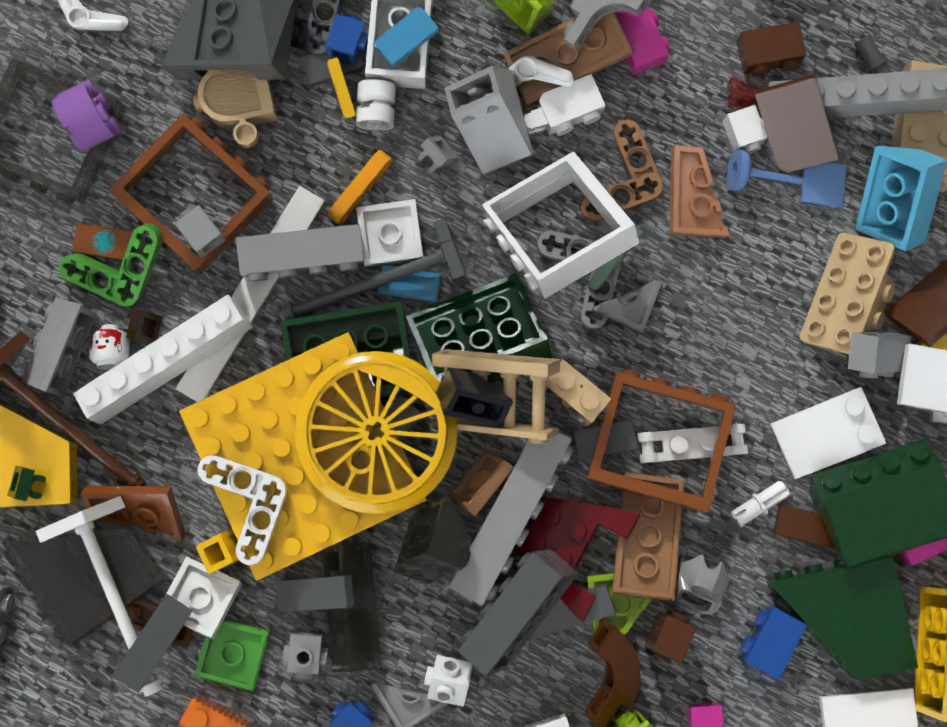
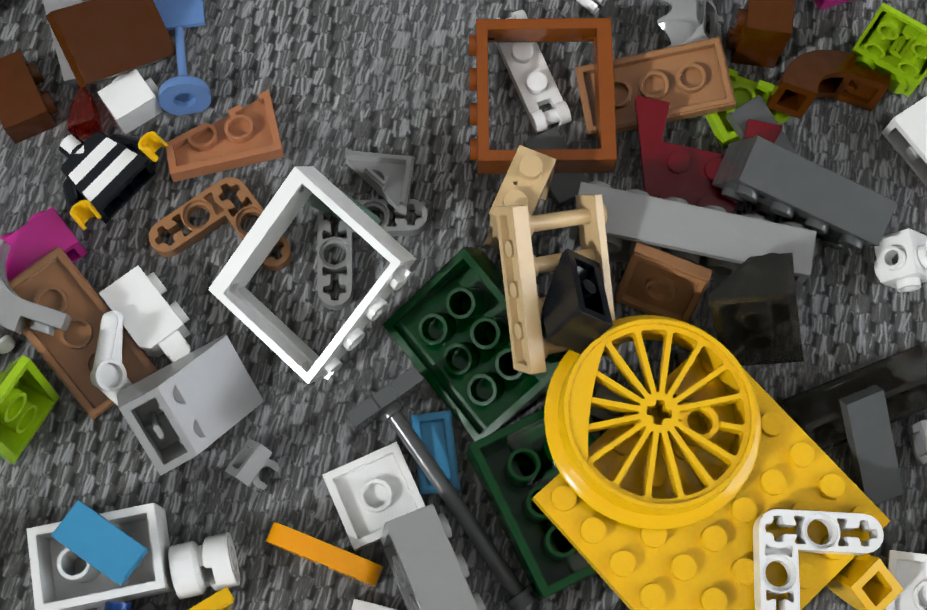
camera: 105 degrees left, 10 degrees down
(688, 97) = (106, 172): none -> torso

